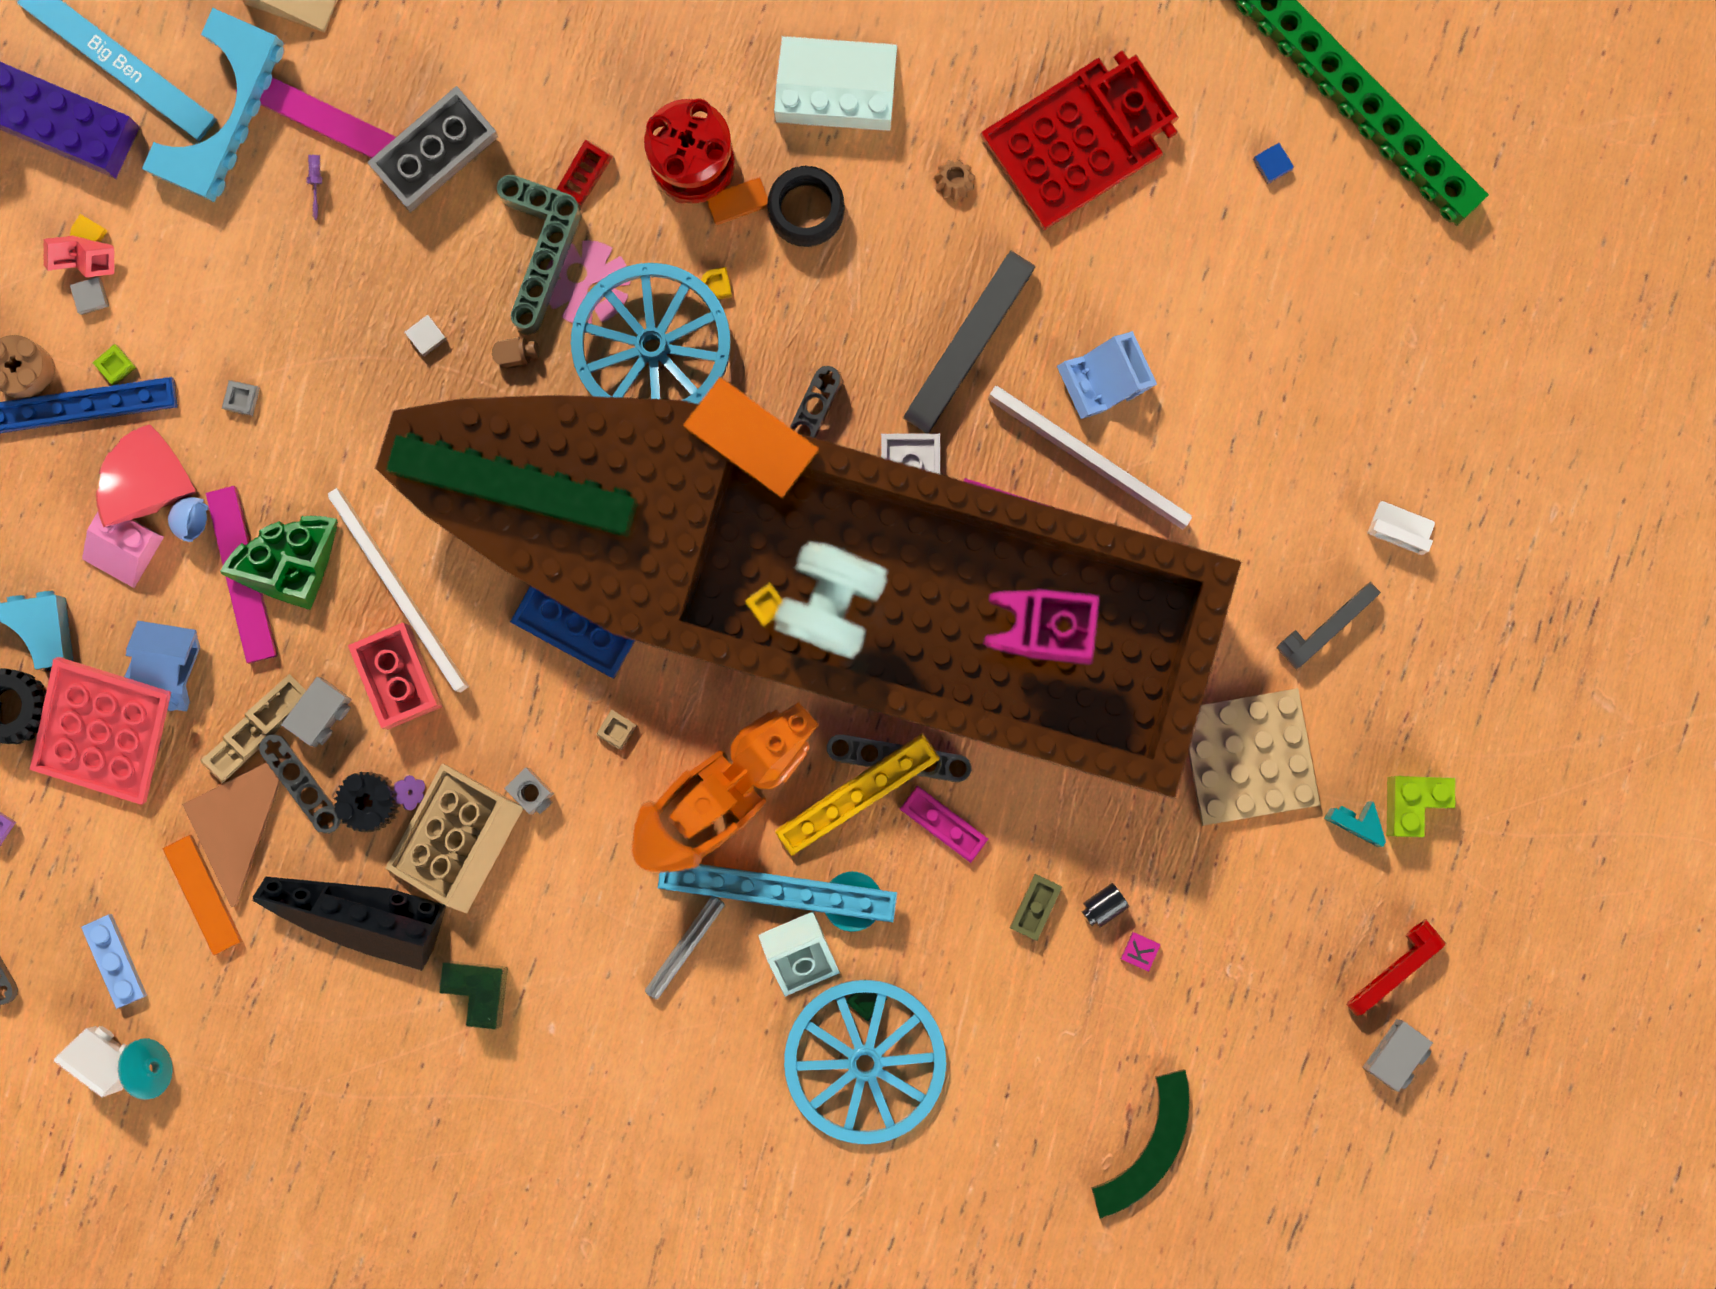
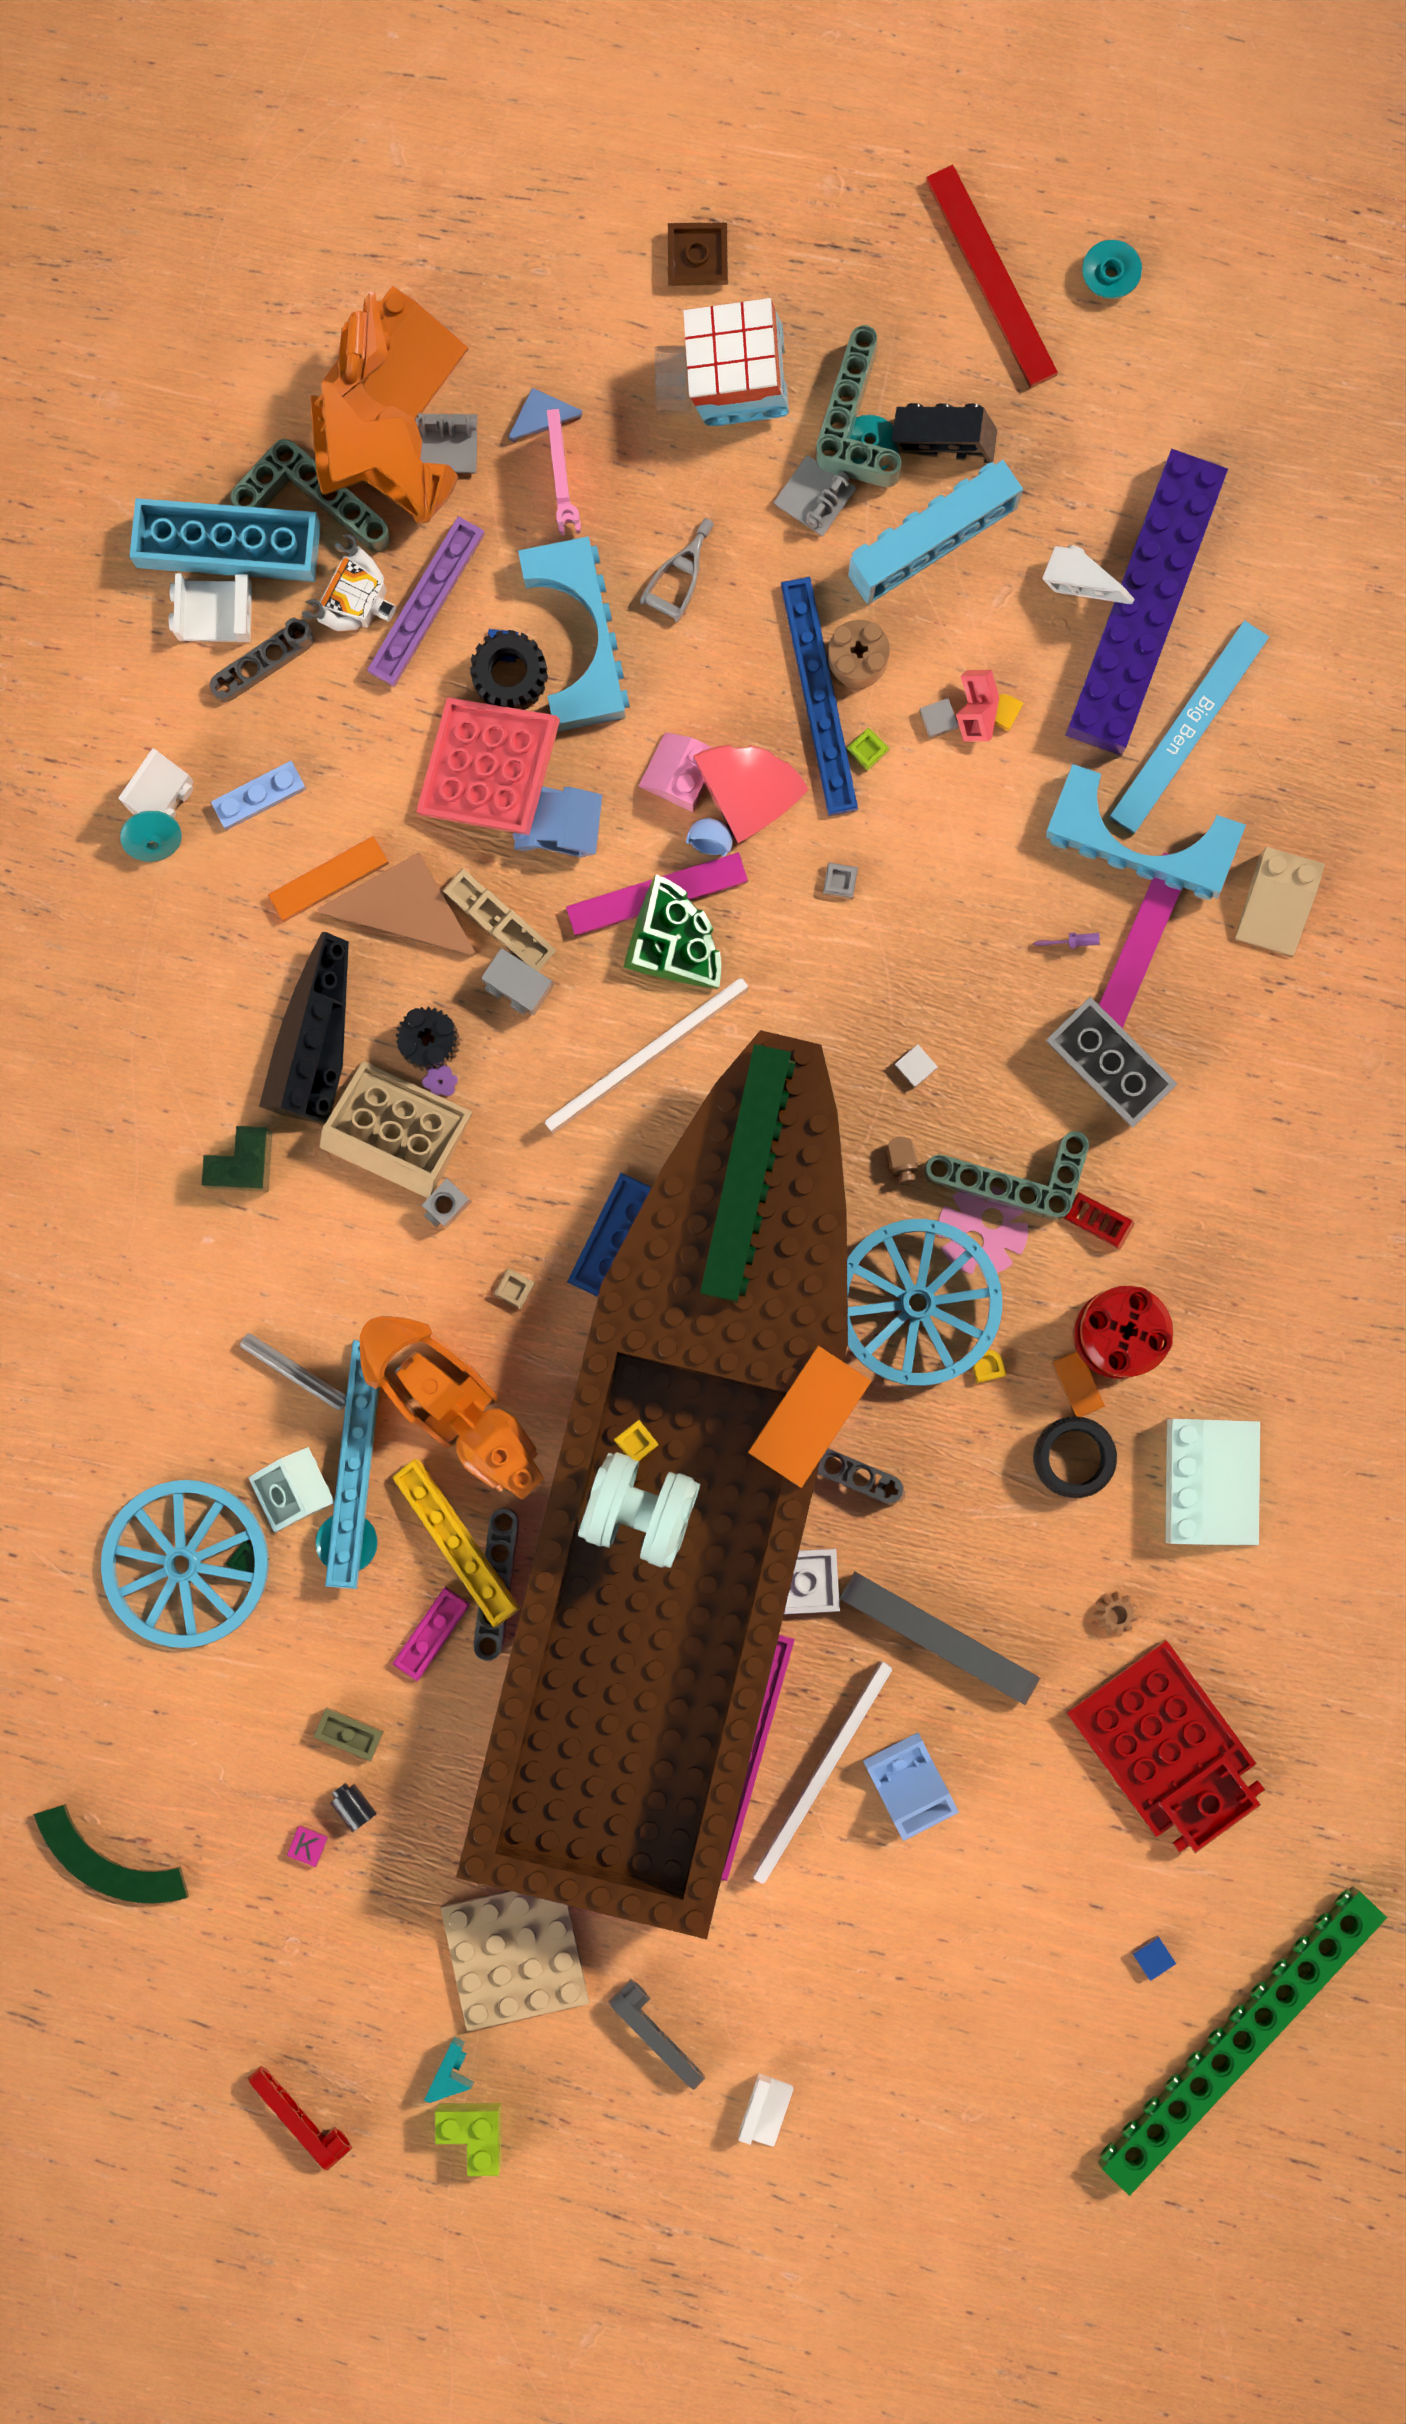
camera: 90 degrees right, 0 degrees up
(296, 786) = (442, 967): dark grey beam -> none
(395, 676) = (557, 1059): coral brick -> none
(1036, 621) = (626, 1725): dark pink brick -> none
(1398, 1055) = (209, 2123): light grey brick -> none

